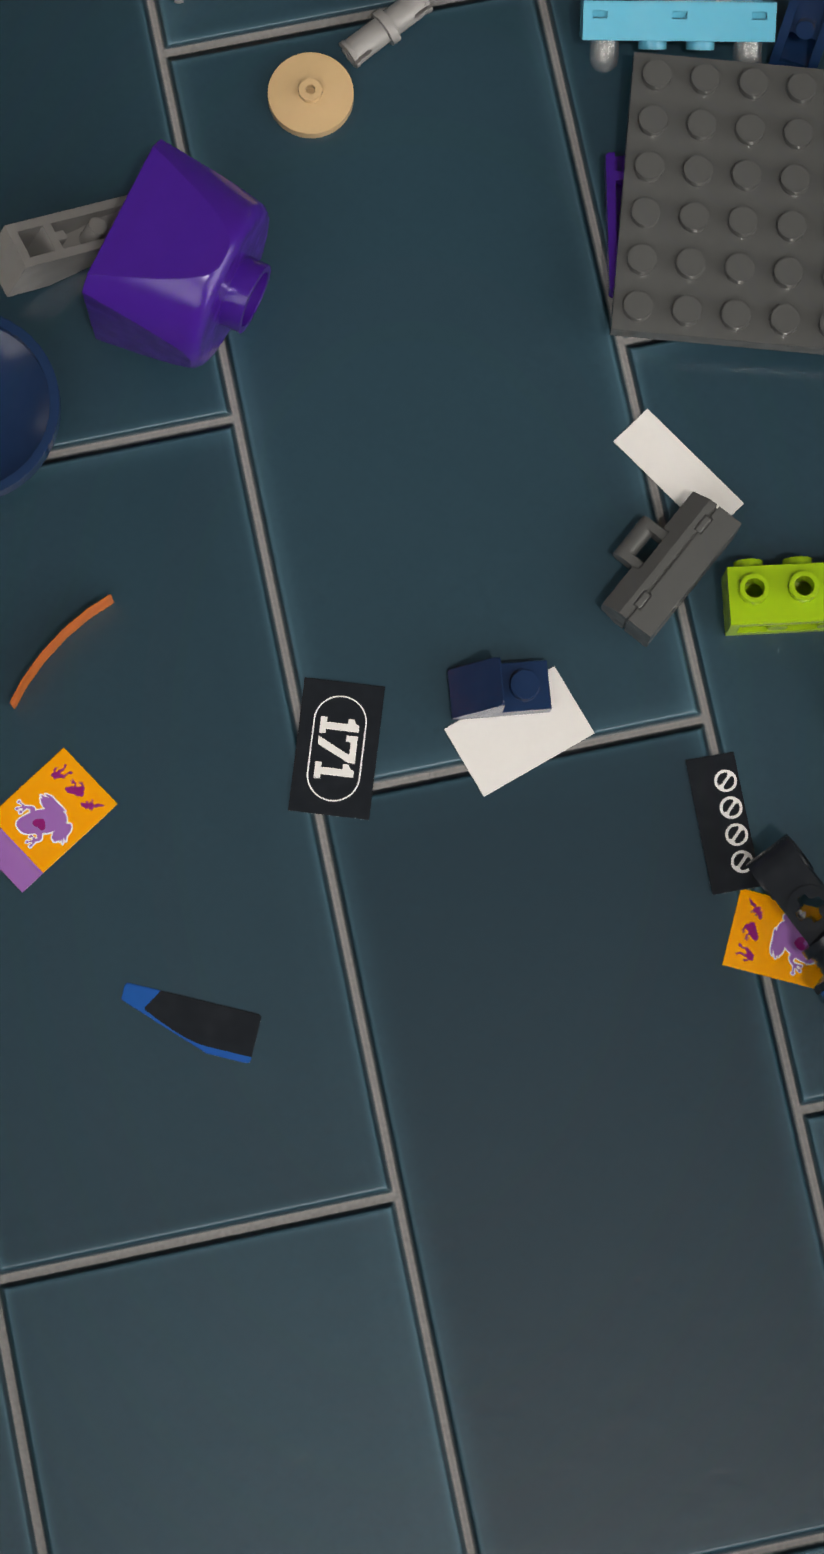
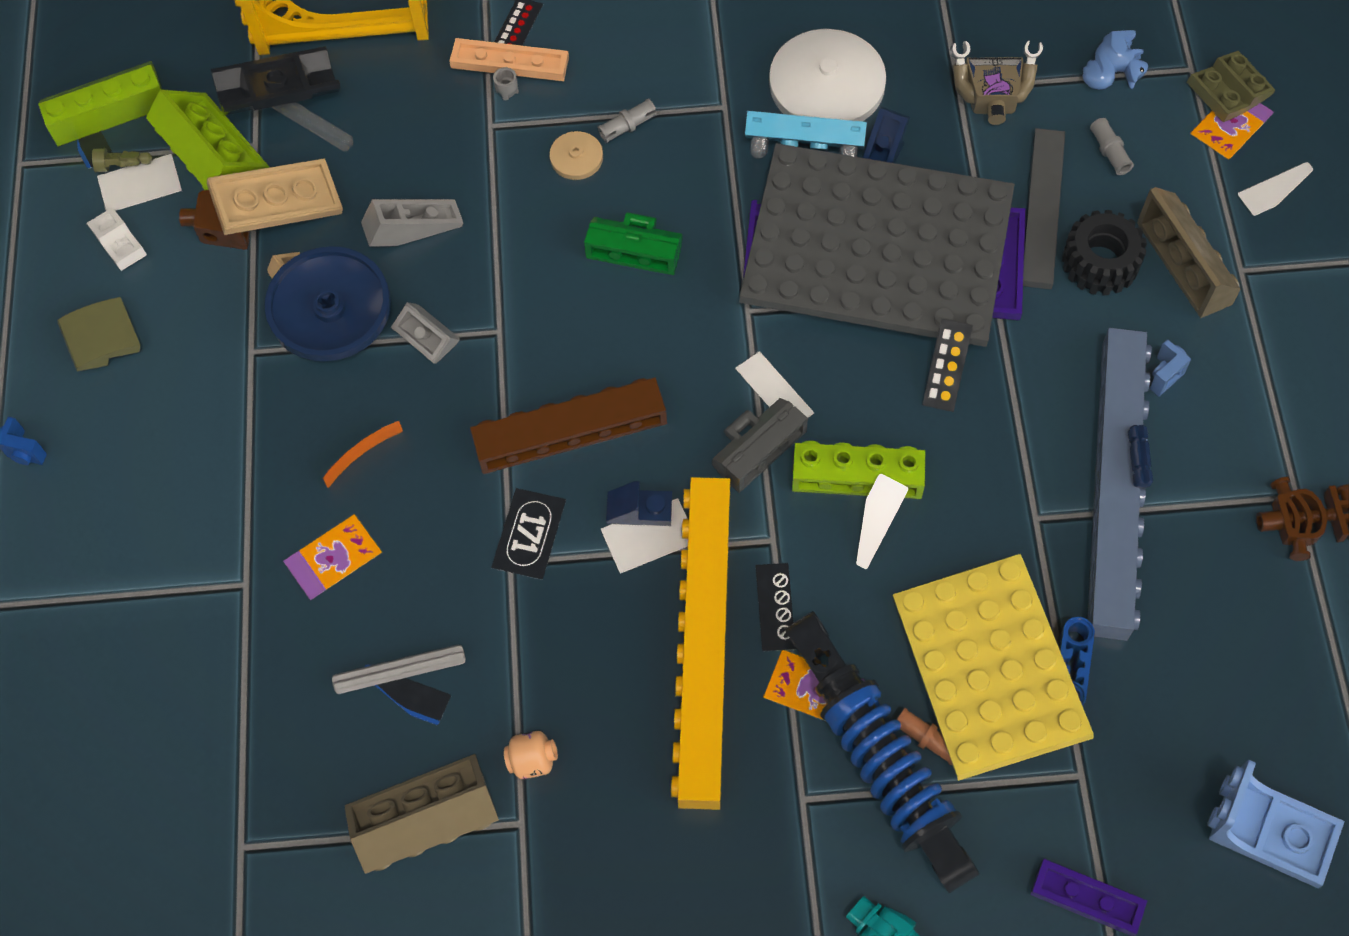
camera: 15 degrees right, 15 degrees down
(120, 433) = (424, 332): none -> light grey slope
(178, 987) = (398, 669): none -> light grey axle
(179, 262) = (471, 227): dark purple piece -> none
(250, 1202) = (420, 814): none -> dark tan slope
(374, 568) = (569, 425): none -> reddish brown brick
(397, 1097) = (530, 755): none -> light nougat head
(428, 252) = (633, 246): none -> green piece
(627, 892) = (704, 645): none -> yellow brick

